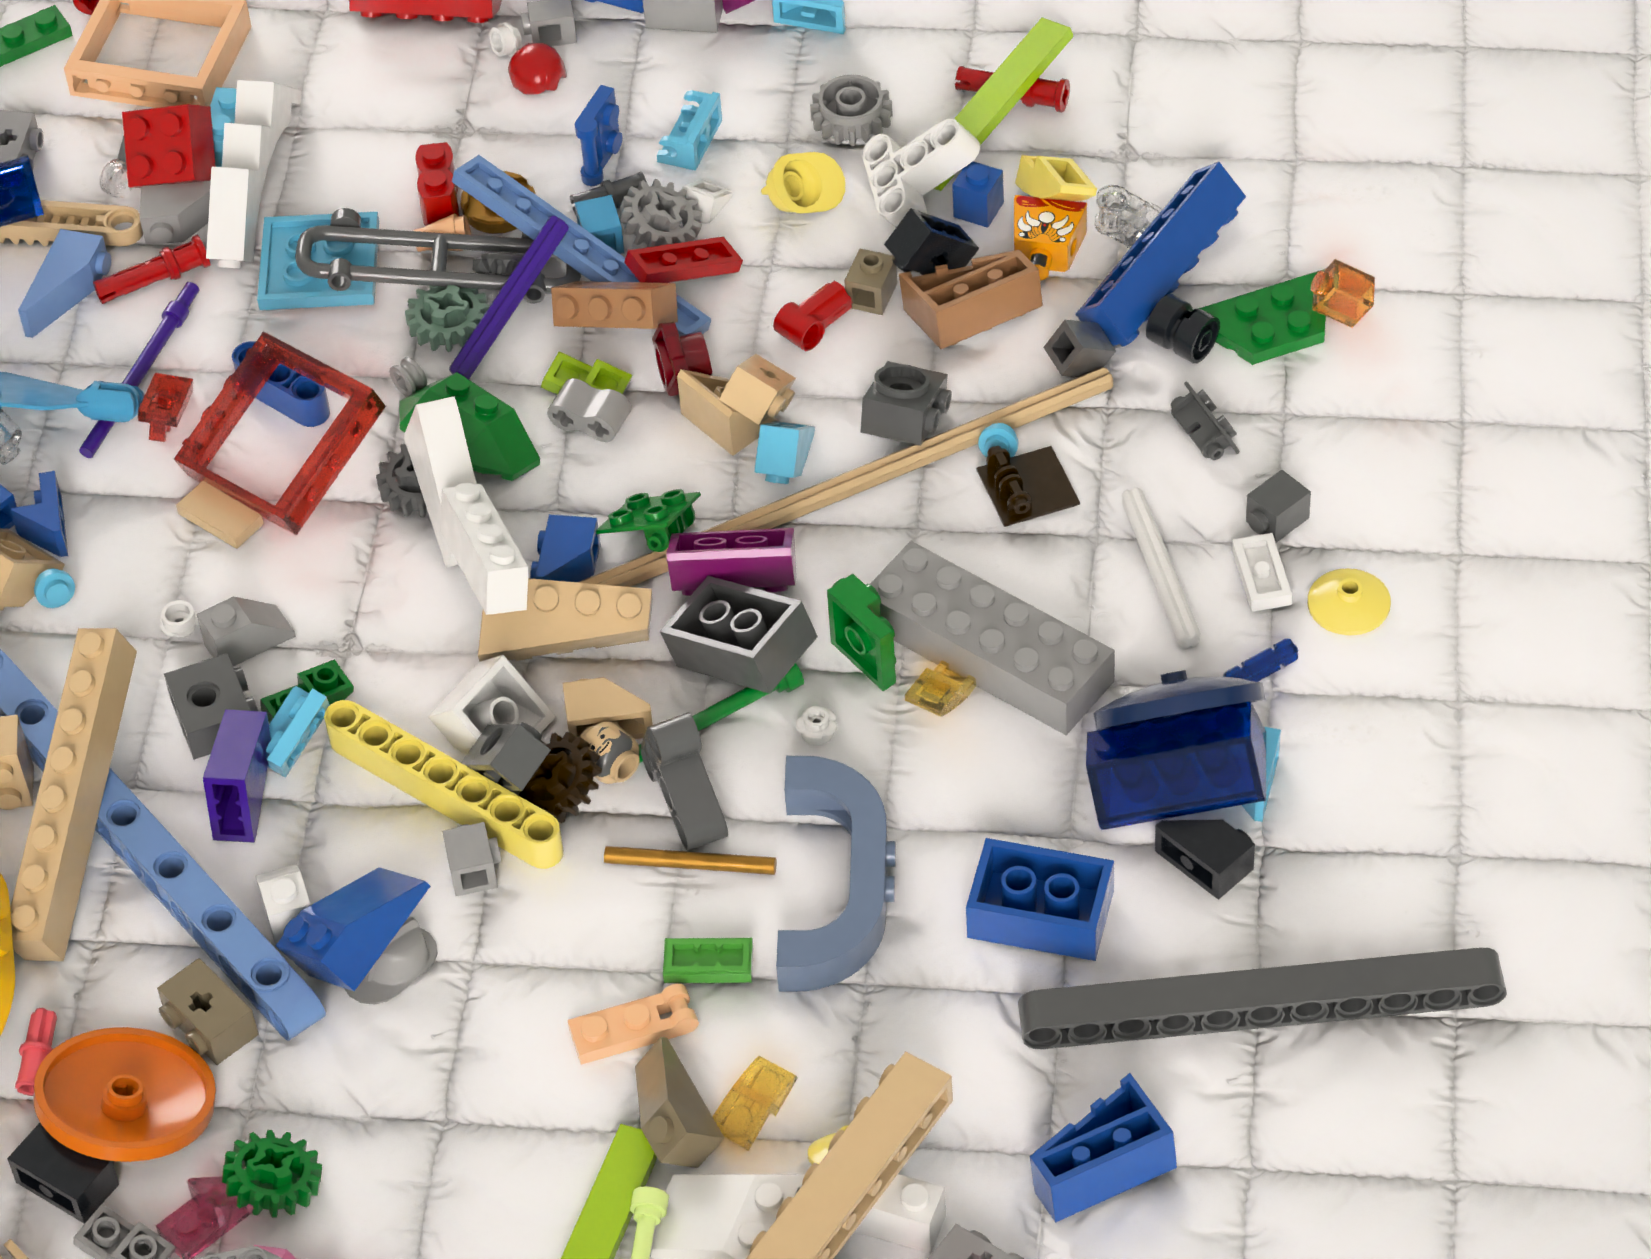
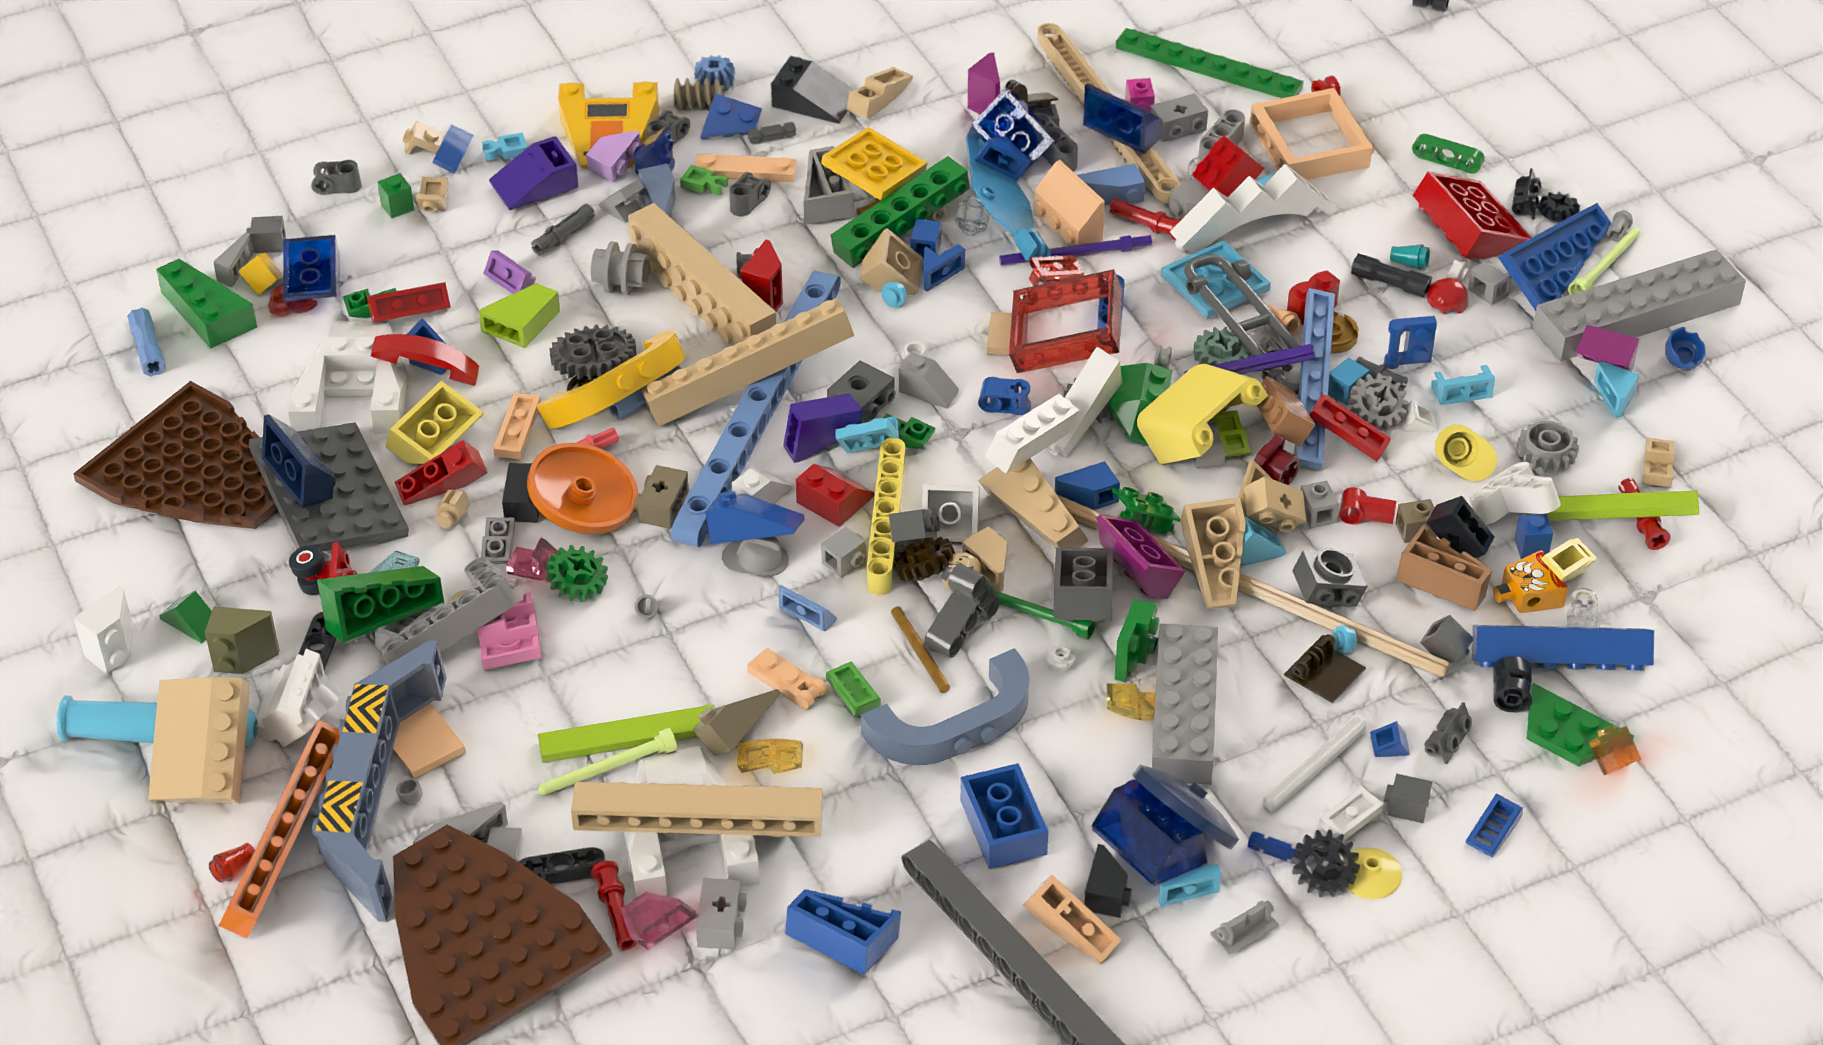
camera: 55 degrees right, 5 degrees down
(74, 329) = (1070, 206): none -> light nougat slope
(83, 128) = (1229, 124): none -> light grey beam
(335, 566) = (1003, 394): none -> blue piece
(356, 826) = (830, 494): none -> red slope
(394, 1115) = (640, 606): none -> light grey hinge
(438, 109) = (1374, 269): none -> black axle
(444, 65) = (1413, 255): none -> teal cone
(531, 948) = (805, 609): none -> medium blue slope
(552, 383) = (1178, 418): none -> light yellow windscreen
(775, 480) = (1215, 543): none -> tan wedge
(776, 346) = (1320, 504): none -> light grey brick
(941, 33) = (1658, 462): none -> tan slope
(1173, 483) = (1389, 741): none -> blue slope
(1235, 913) = (1071, 919): none -> light nougat slope
(1323, 629) = (1335, 870): none -> black gear
(1356, 753) = (1245, 927): none -> light grey hinge
(1363, 428) = (1505, 807): none -> blue slope

